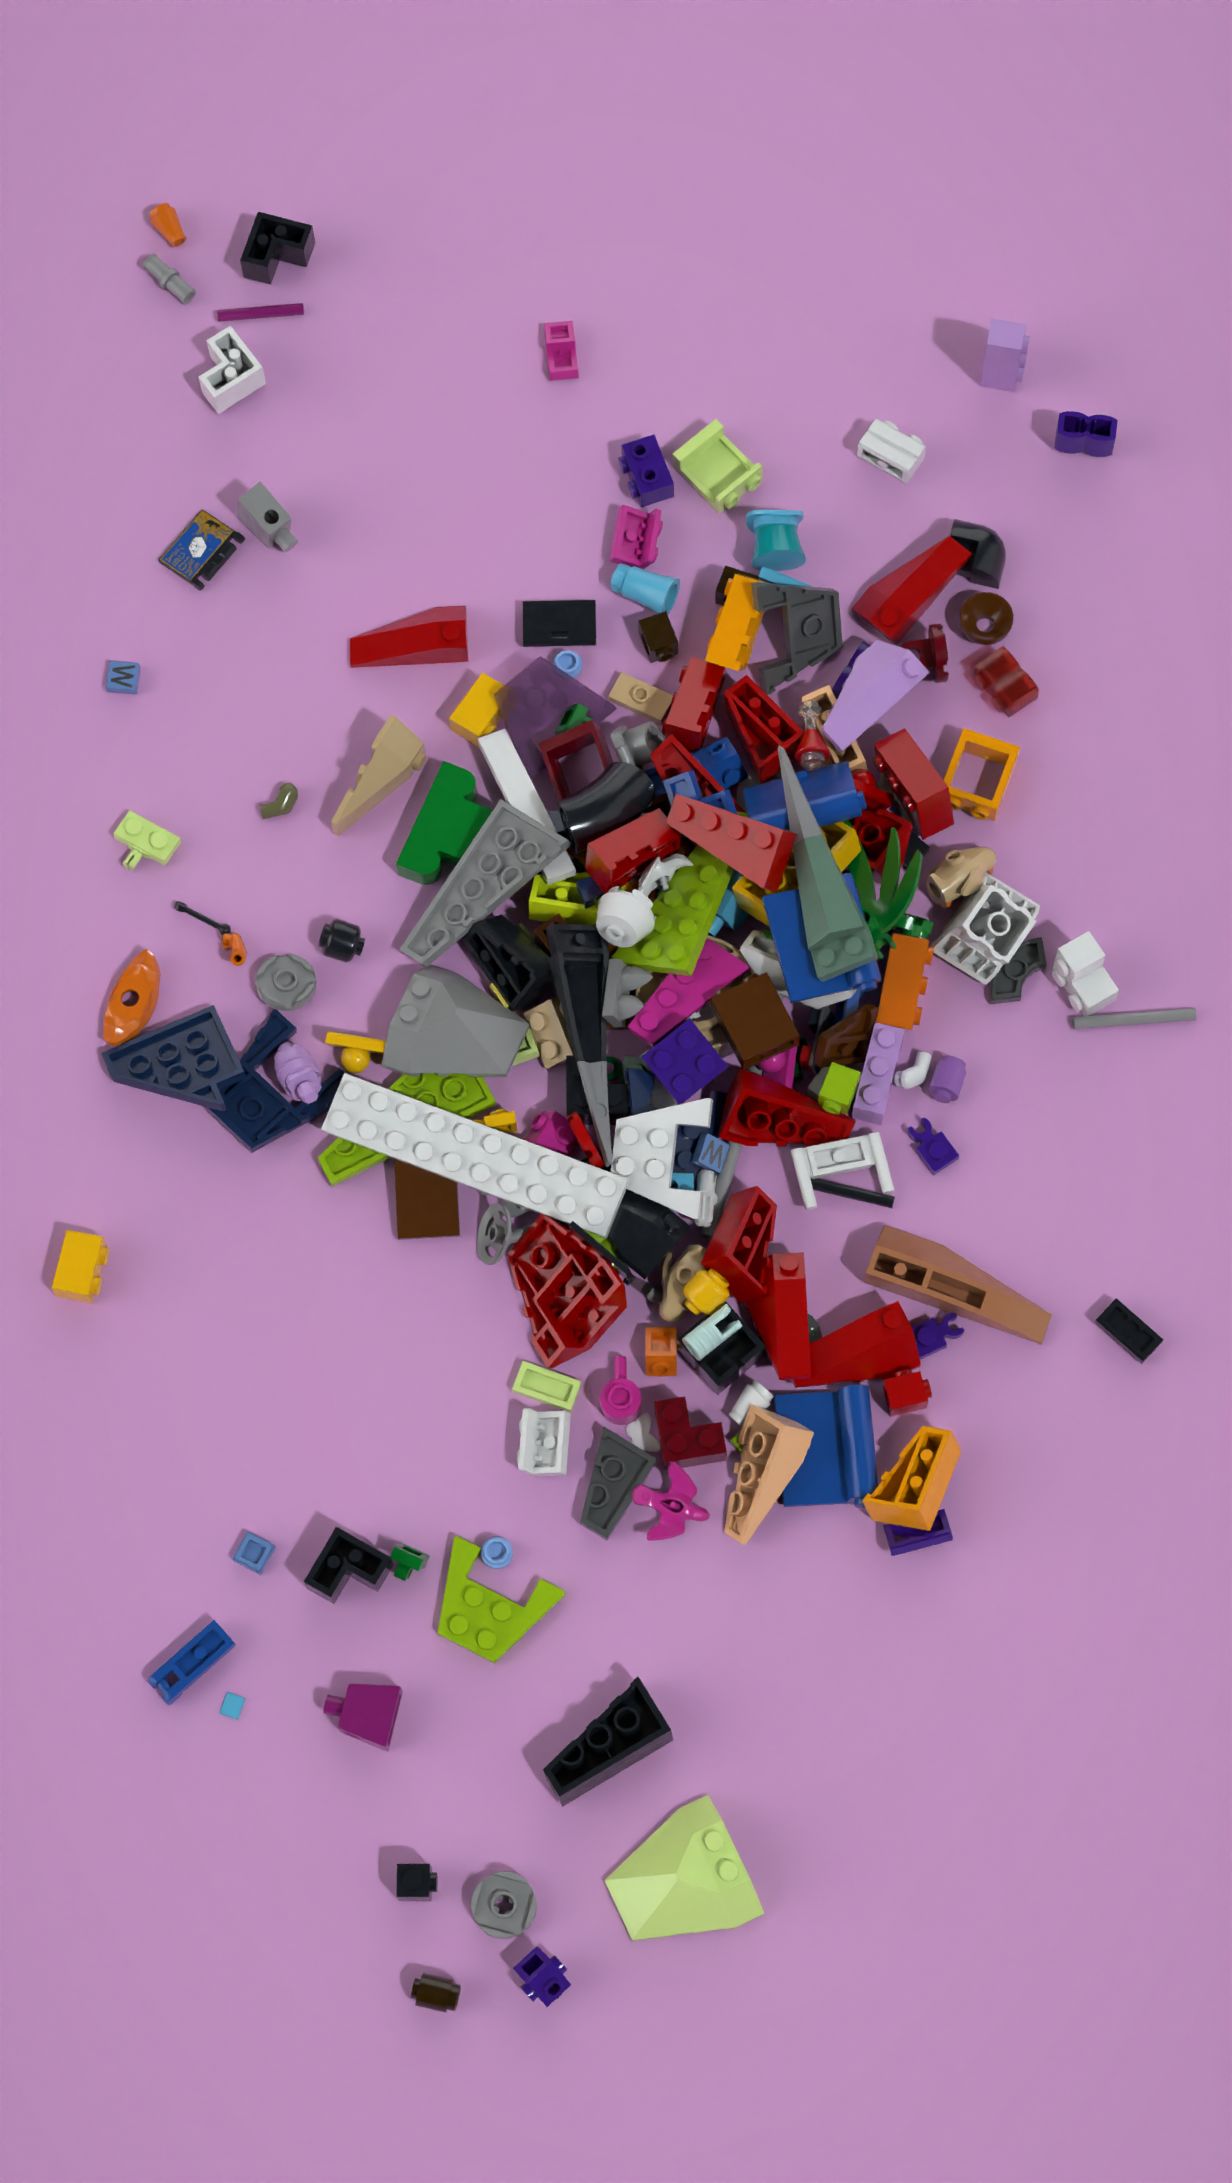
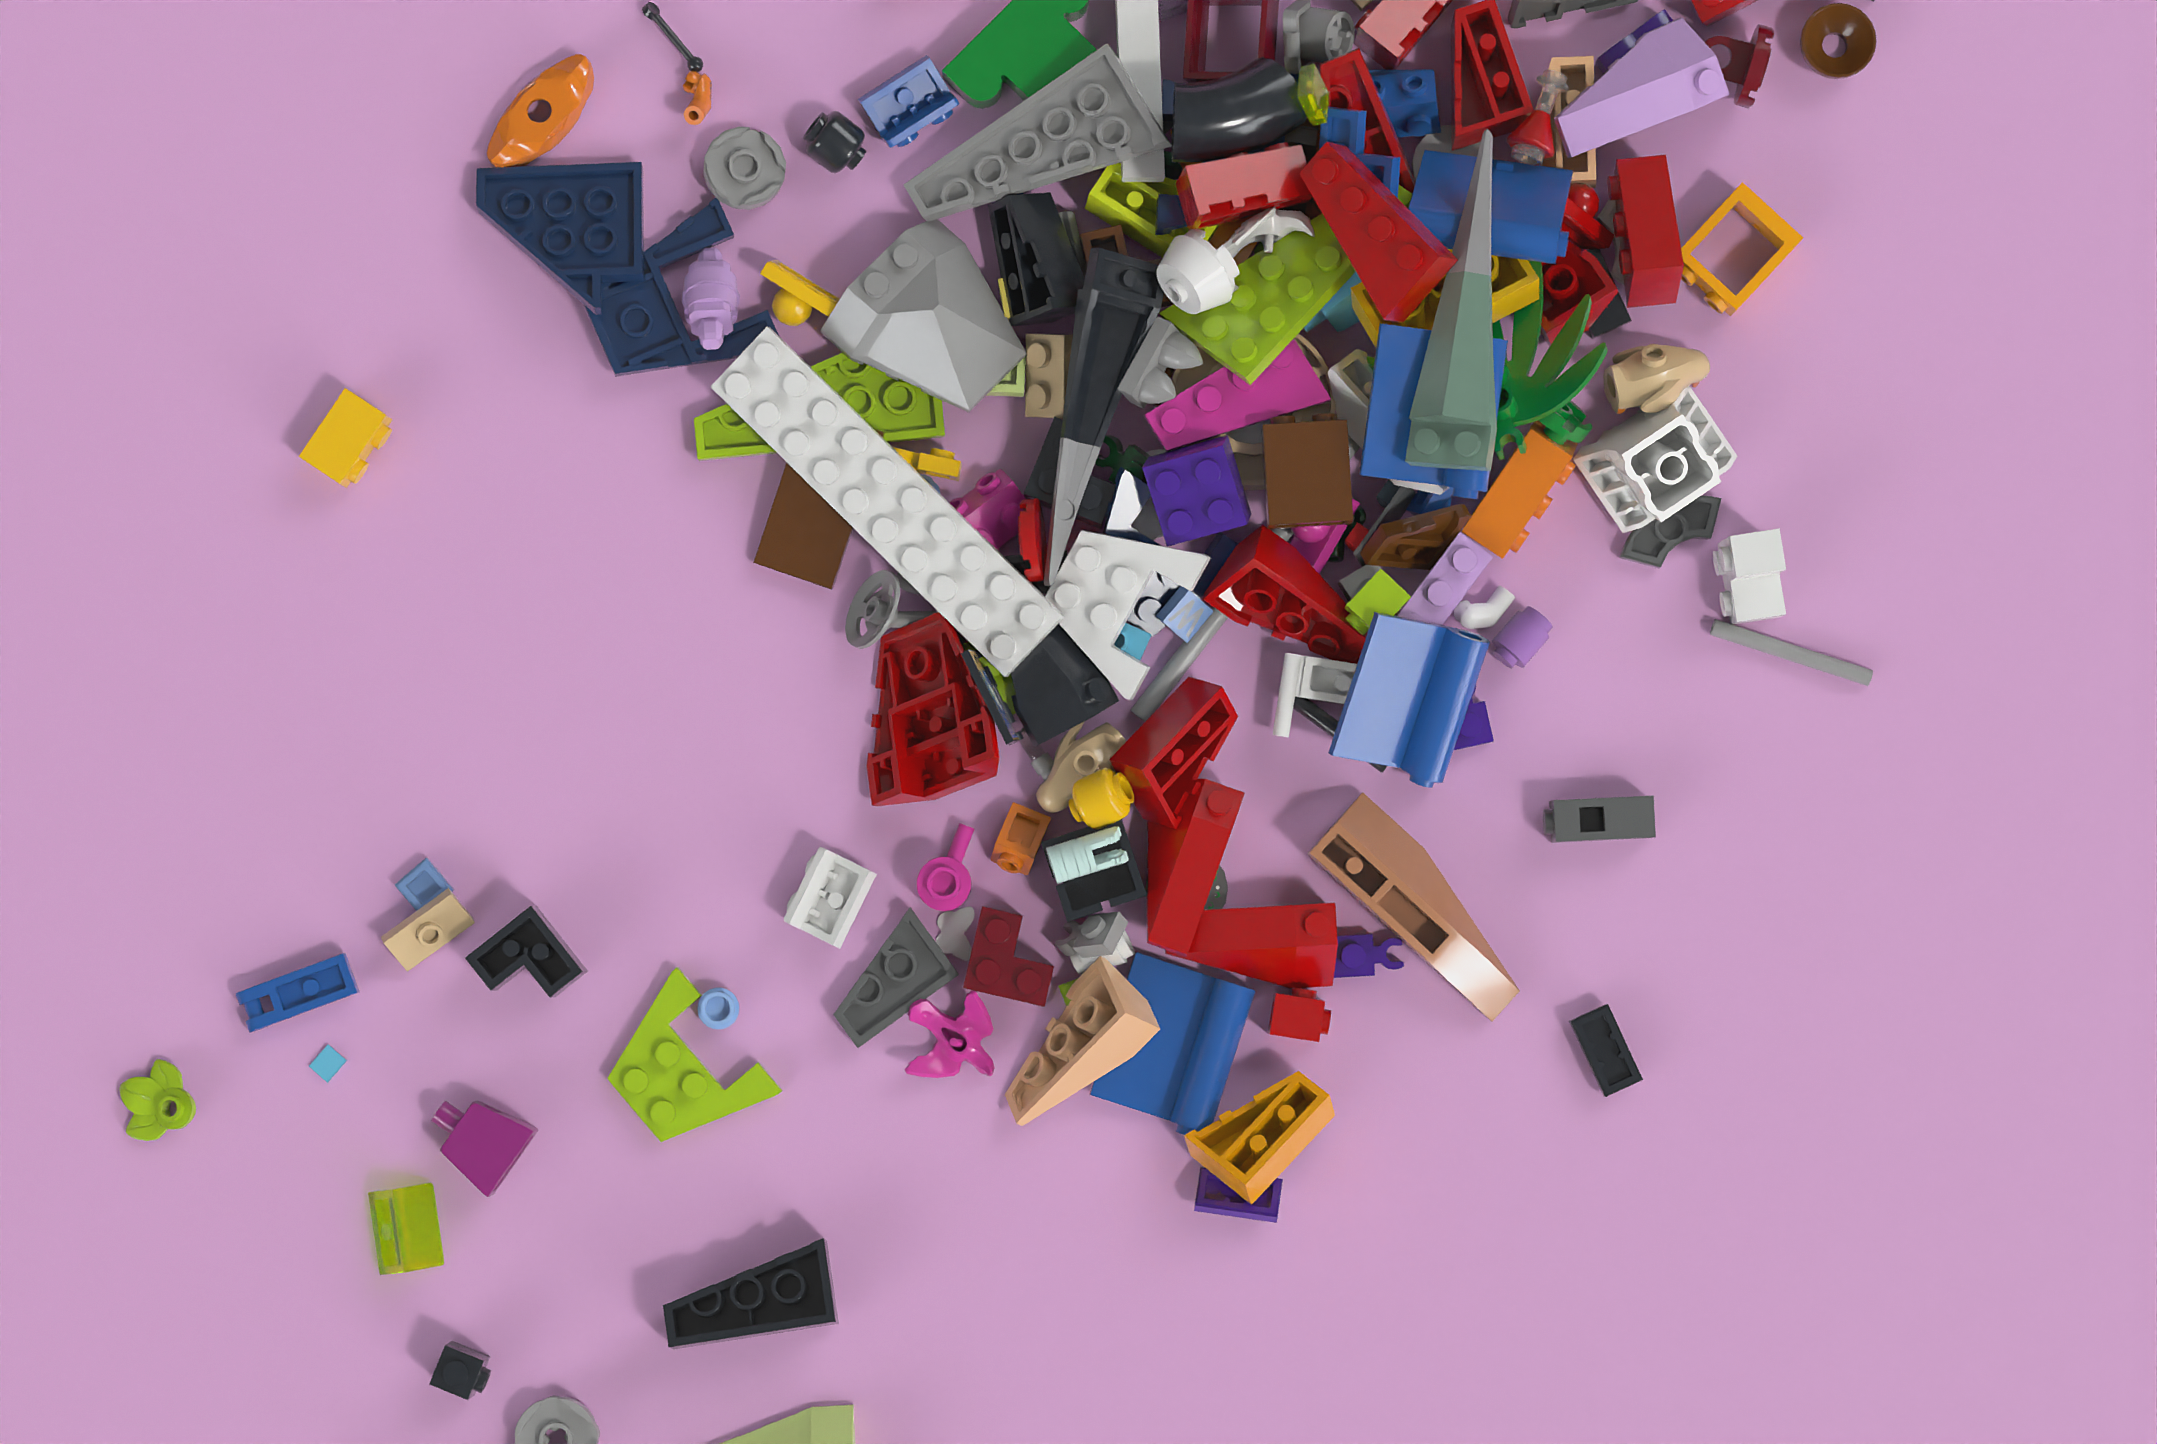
camera: 15 degrees right, 15 degrees up
(114, 1782) = (151, 1102): none -> lime plate
(268, 1580) = (427, 929): none -> tan plate
(334, 1798) = (406, 1228): none -> clear neon green panel
(381, 896) = (909, 103): none -> bracket
(408, 1560) = (606, 974): green tile -> none
(546, 1386) = (862, 825): yellowish green tile -> none
(653, 772) = (1313, 94): none -> clear neon green tile
(706, 1183) = (1158, 659): white axle -> none
(741, 1391) = (1095, 936): none -> light grey plate
(888, 1143) = (1409, 696): none -> door
(1005, 682) = (1824, 137): clear red brick -> none
(1055, 1177) = (1600, 819): none -> dark grey brick

